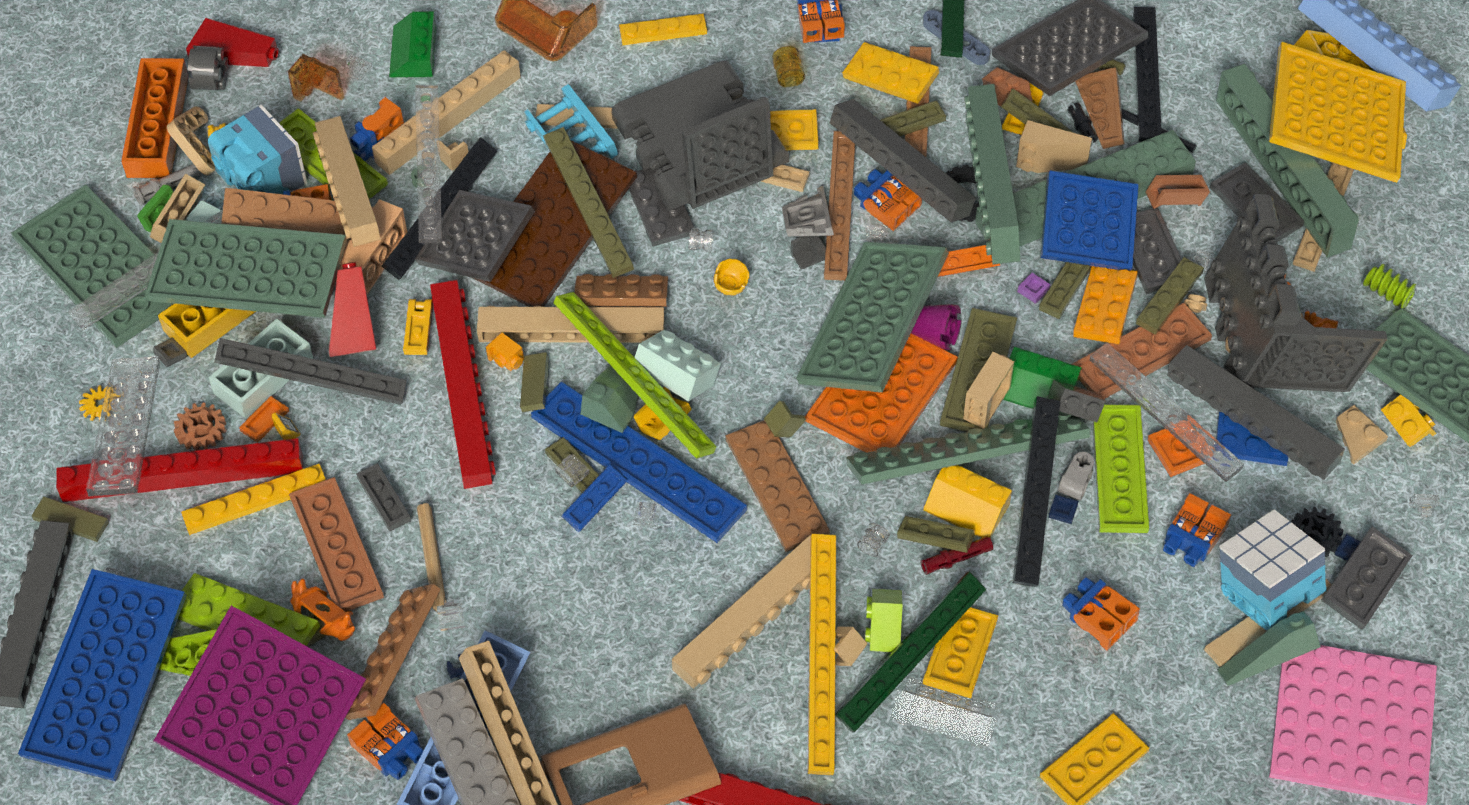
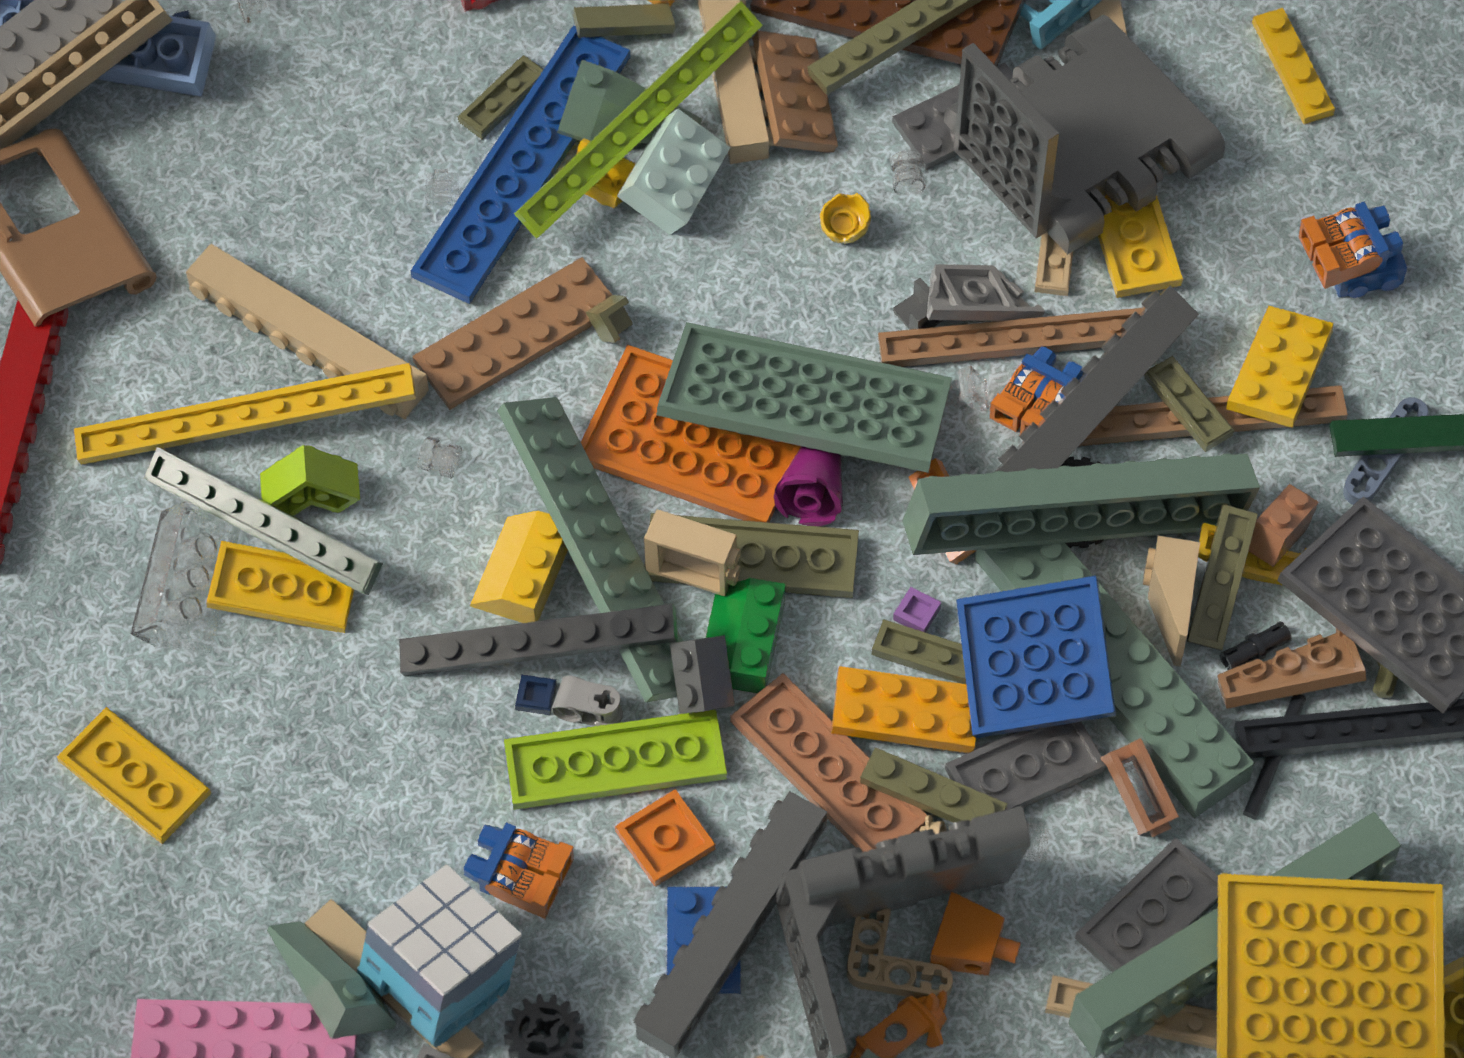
camera: 80 degrees right, 5 degrees up
(572, 470) = (489, 87): clear tile -> none
(594, 498) = (453, 122): blue tile -> none
(788, 66) = (1260, 228): clear yellow wheel -> none
(849, 645) = (262, 445): tan panel -> none
(936, 534) = (460, 532): olive tile -> none
(947, 559) = (425, 552): dark red pin -> none
(1101, 611) = (364, 755): orange hips -> none
(1166, 412) = (710, 803): clear plate -> none

